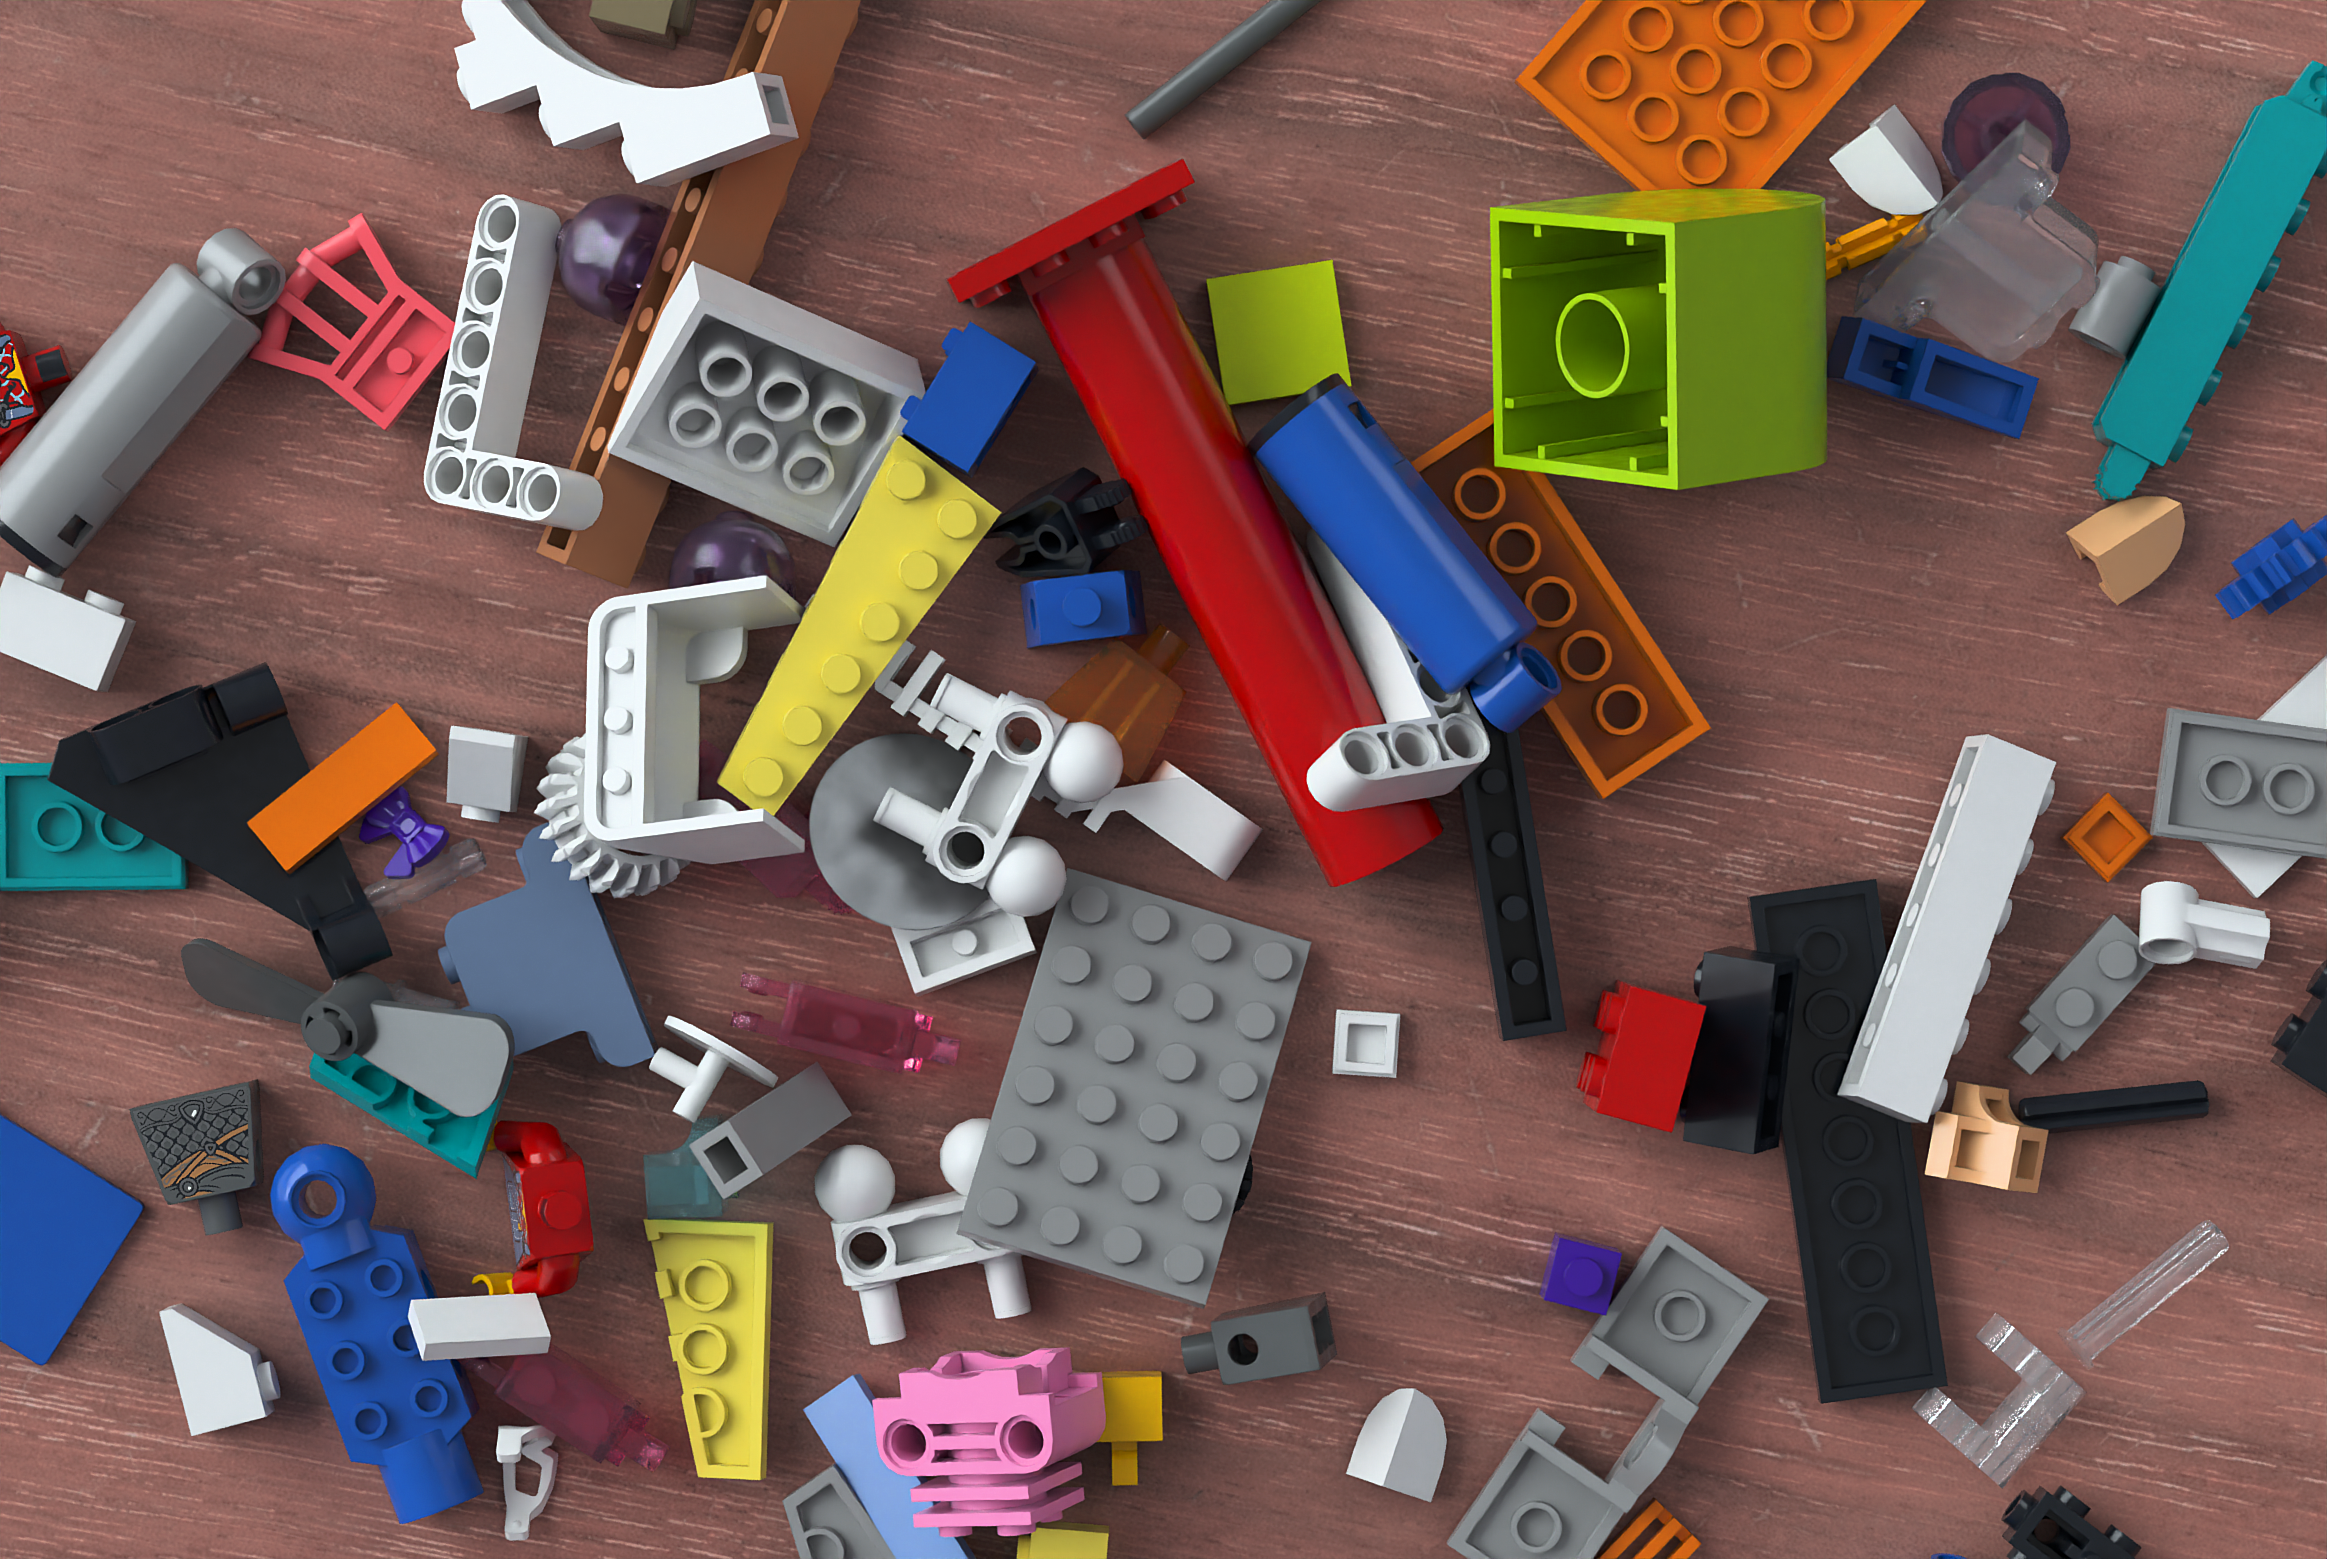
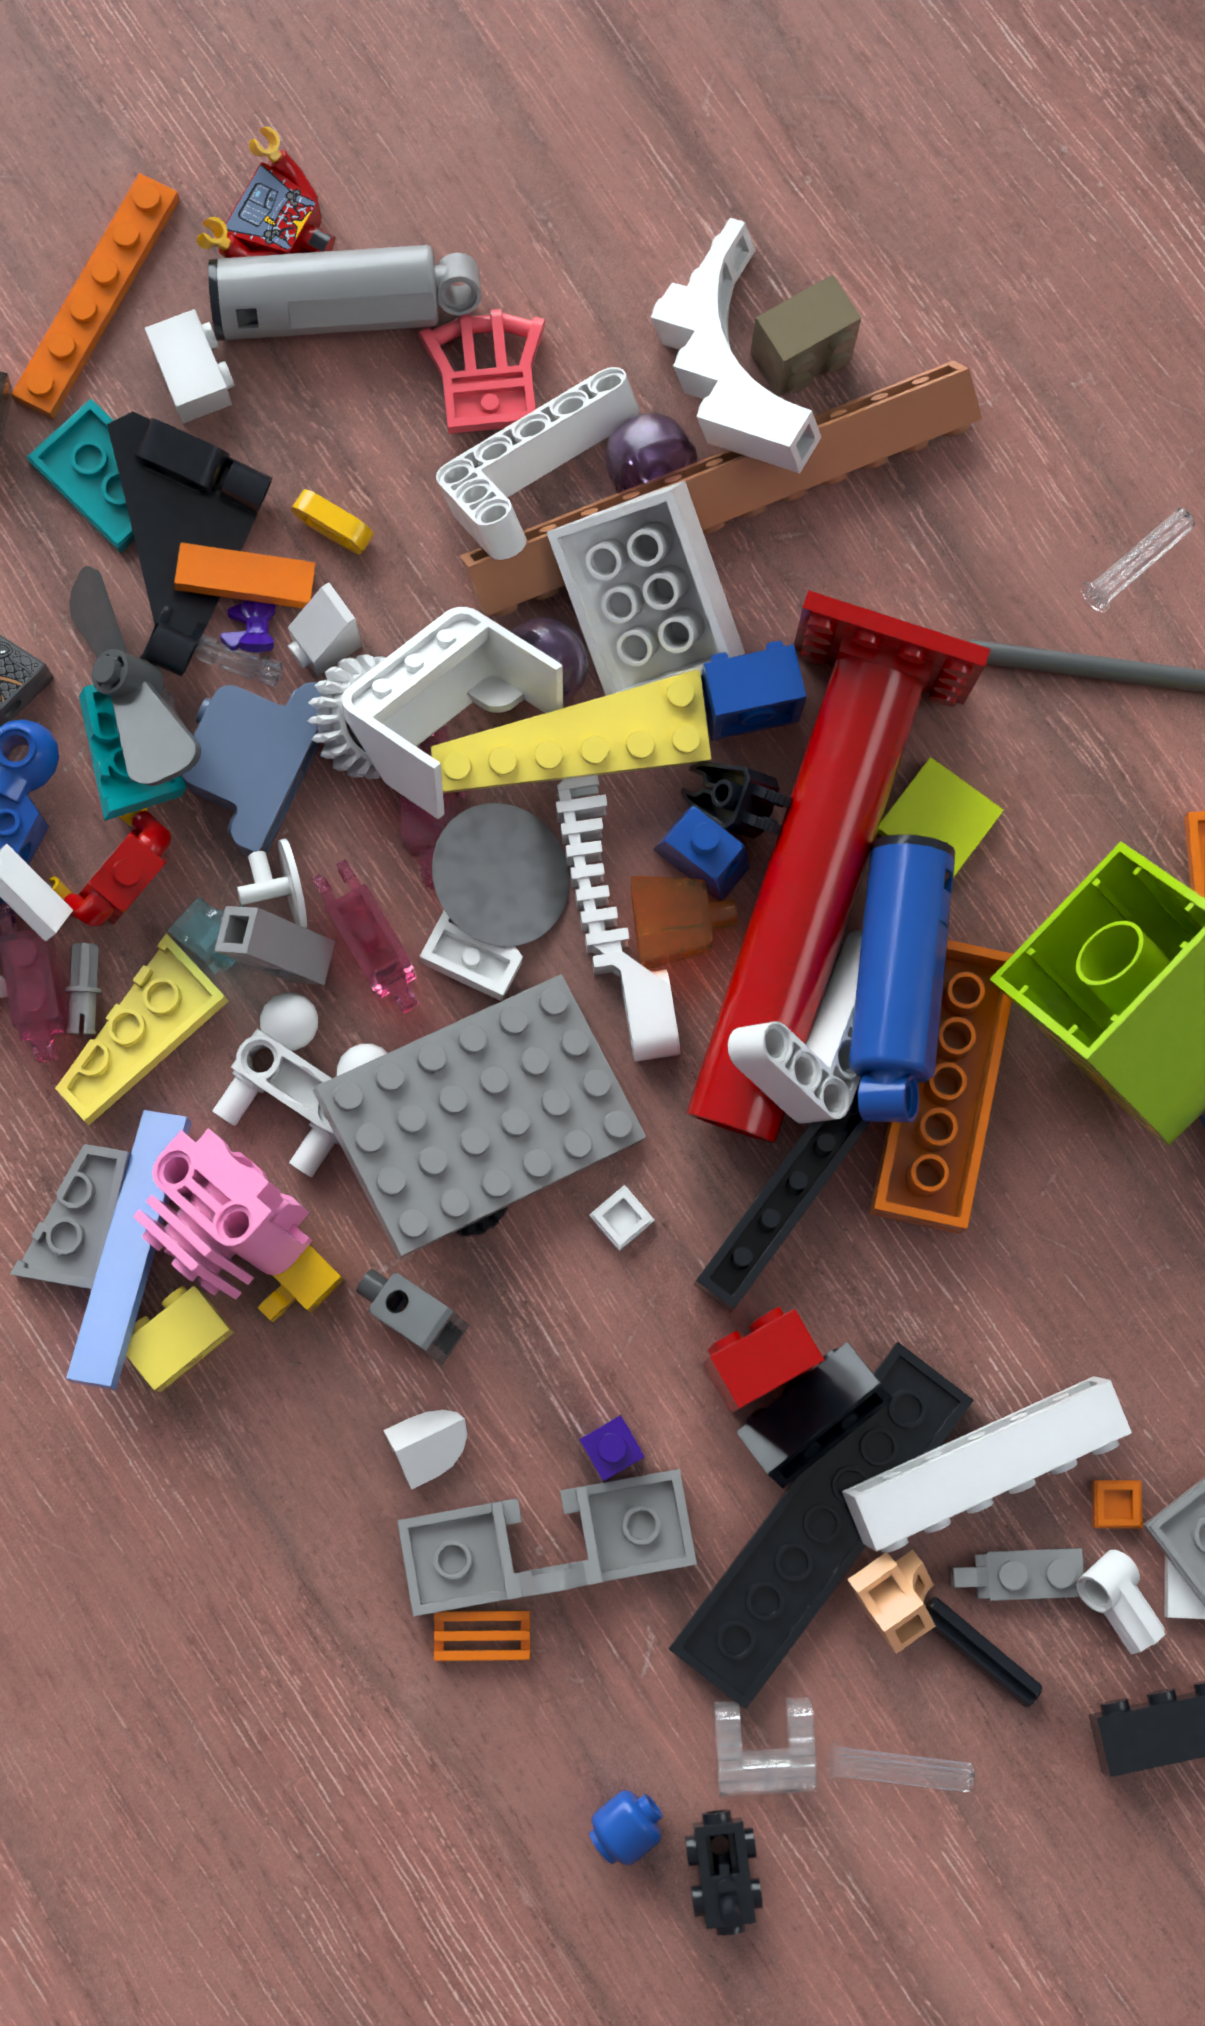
camera: 40 degrees right, 10 degrees down
(370, 644) = (332, 521): none -> yellow beam
(621, 1354) = (83, 988): none -> light grey axle
(1023, 871) = (567, 892): white piece -> none

